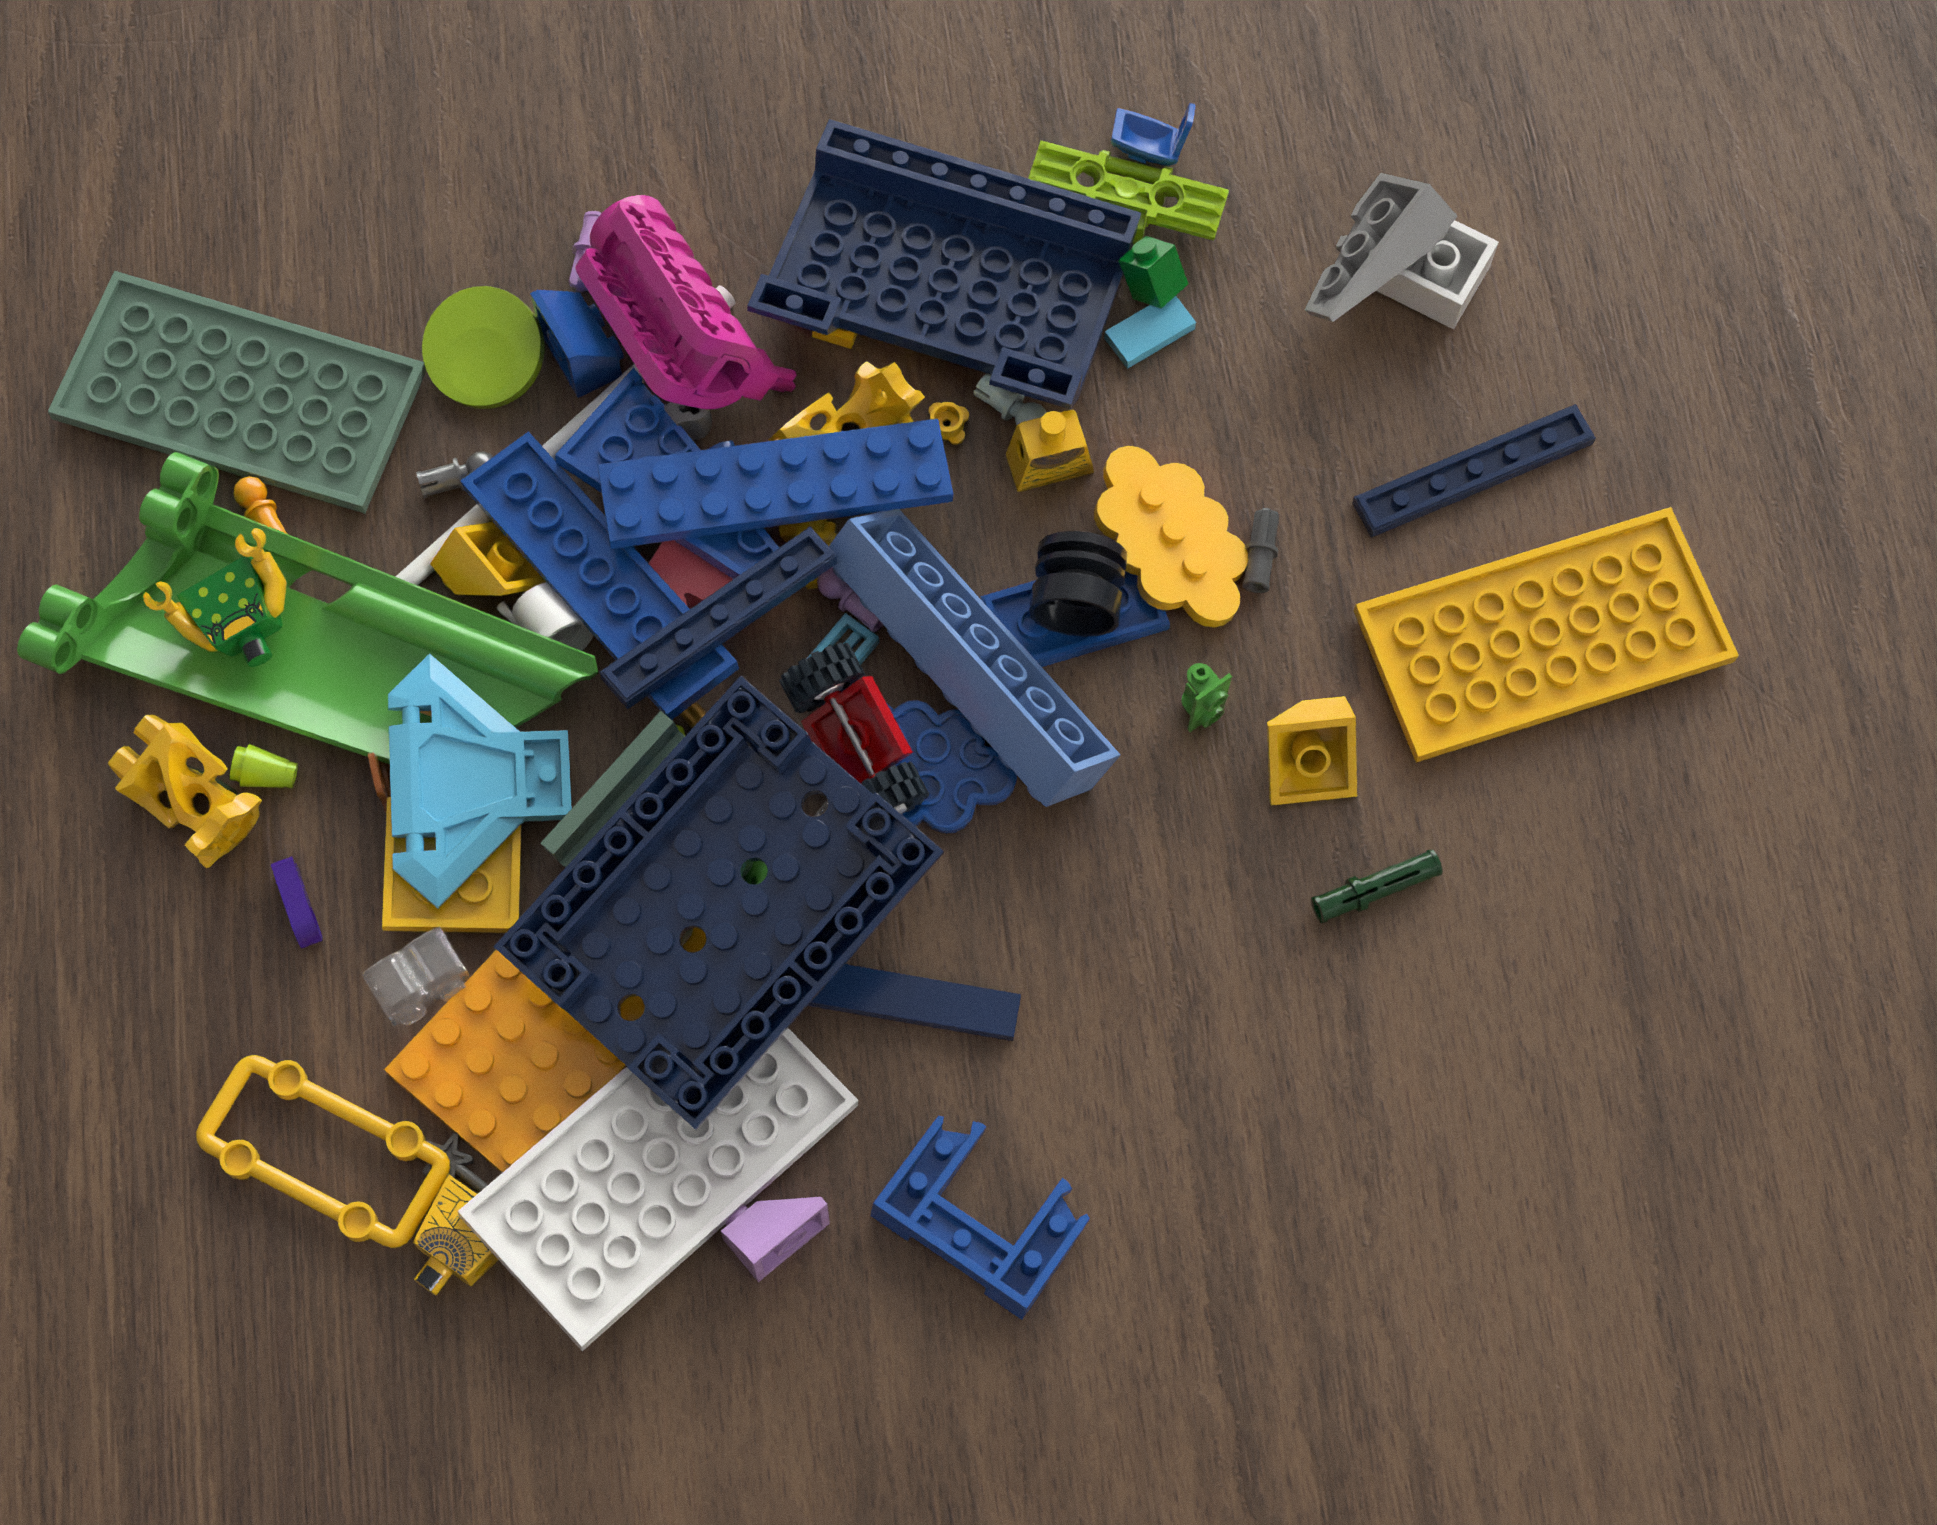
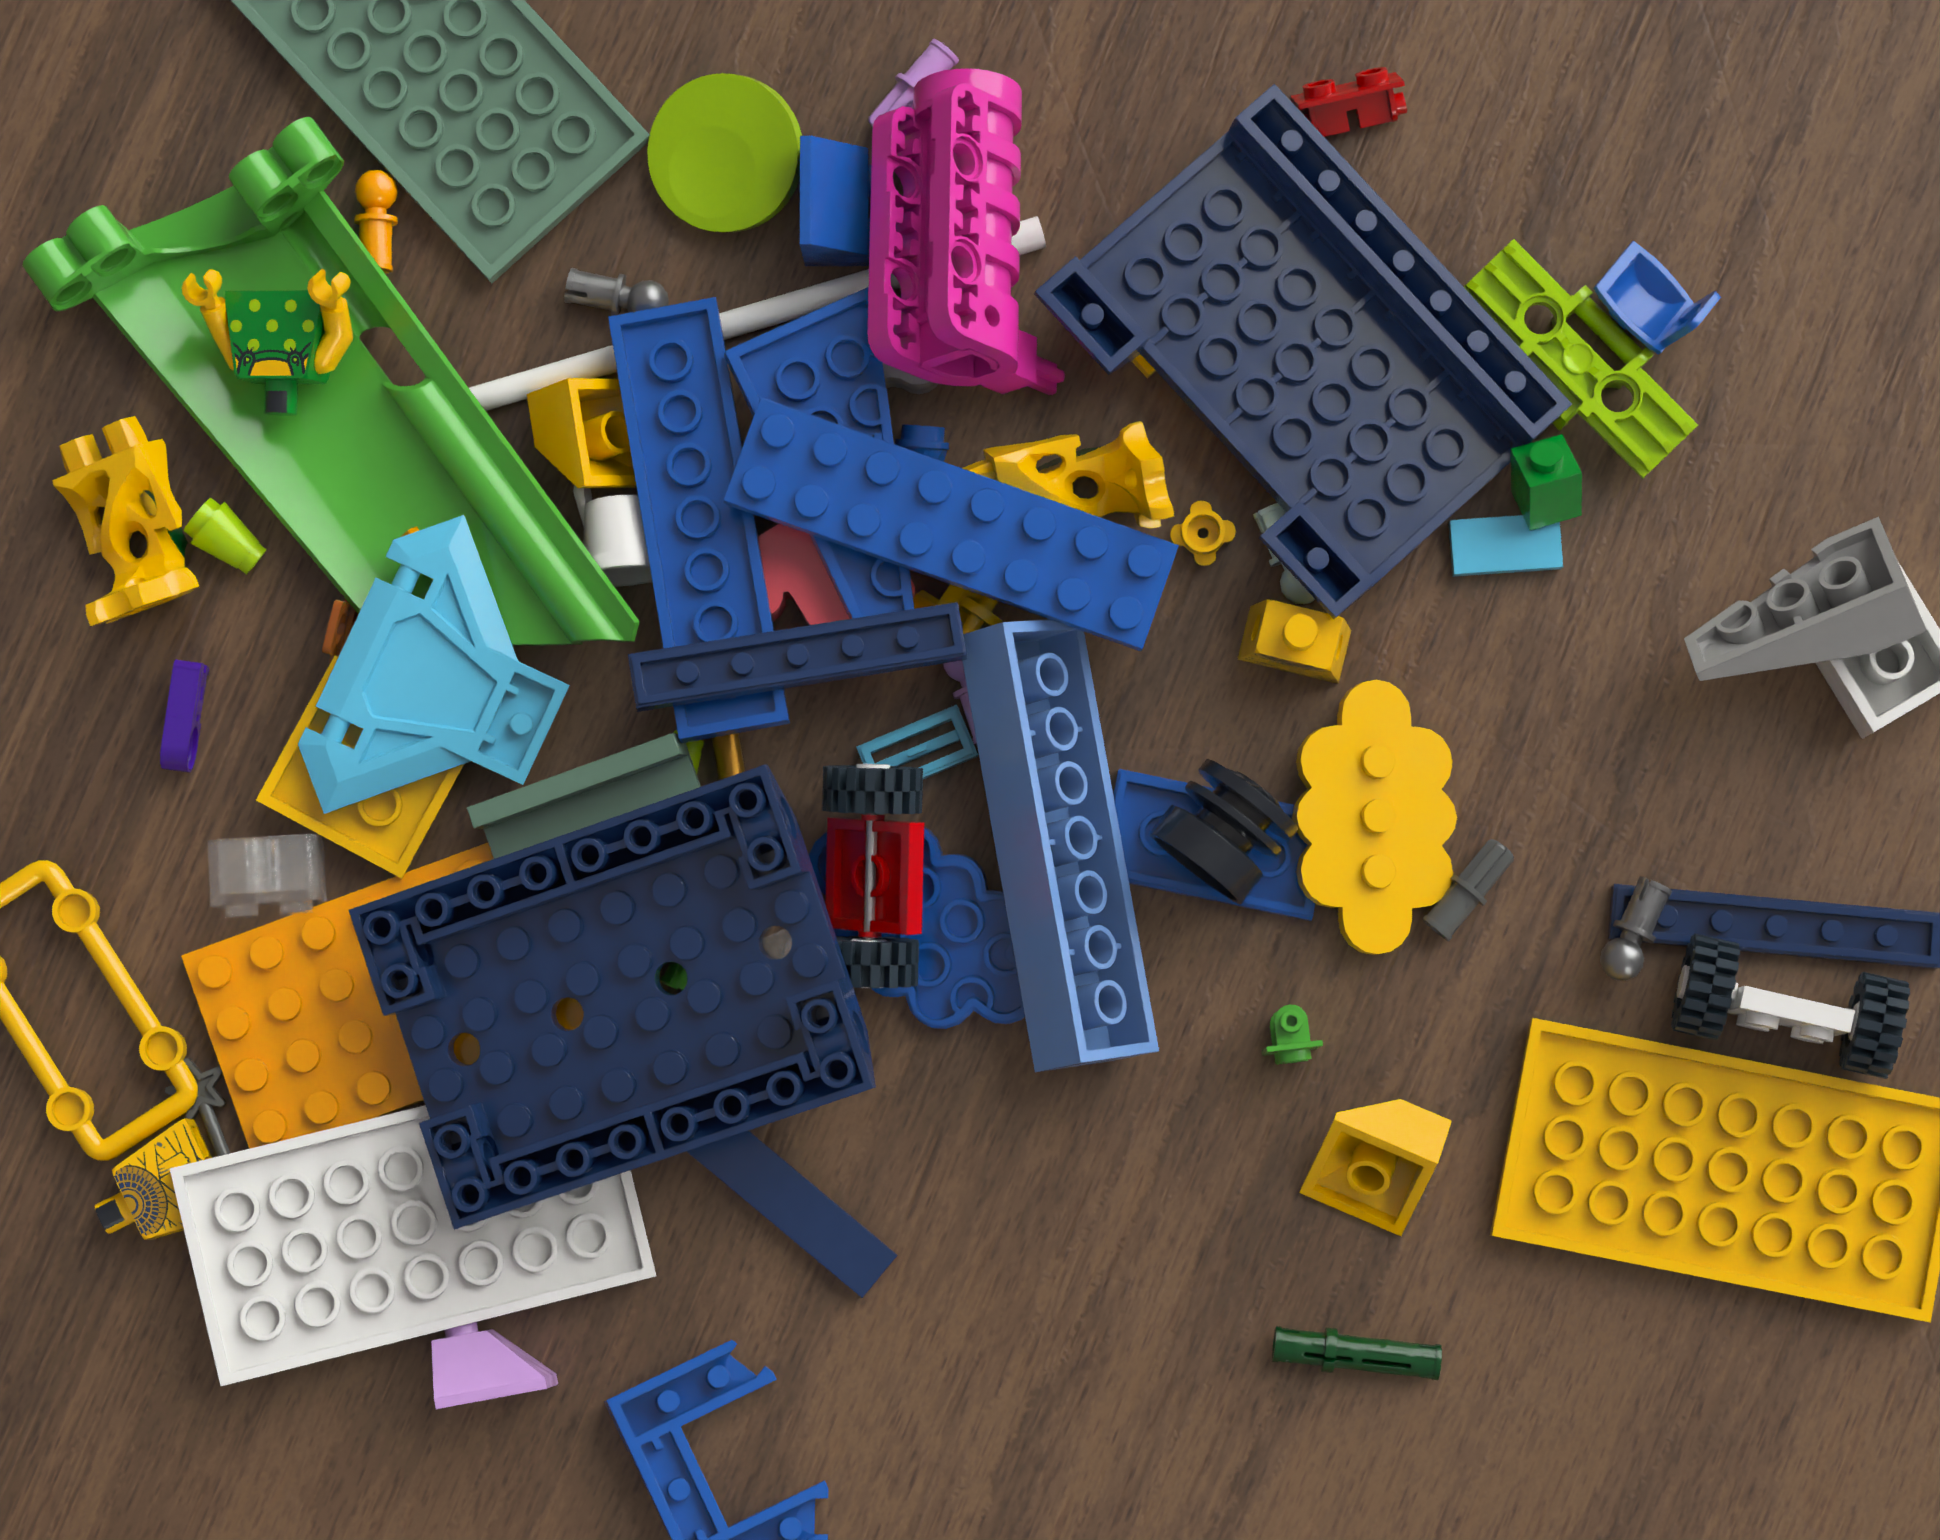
camera: 40 degrees right, 15 degrees up
(895, 109) = (1370, 96): none -> red hinge
(1390, 531) = (1622, 956): none -> flat silver pin
(1572, 486) = (1868, 1028): none -> black plate

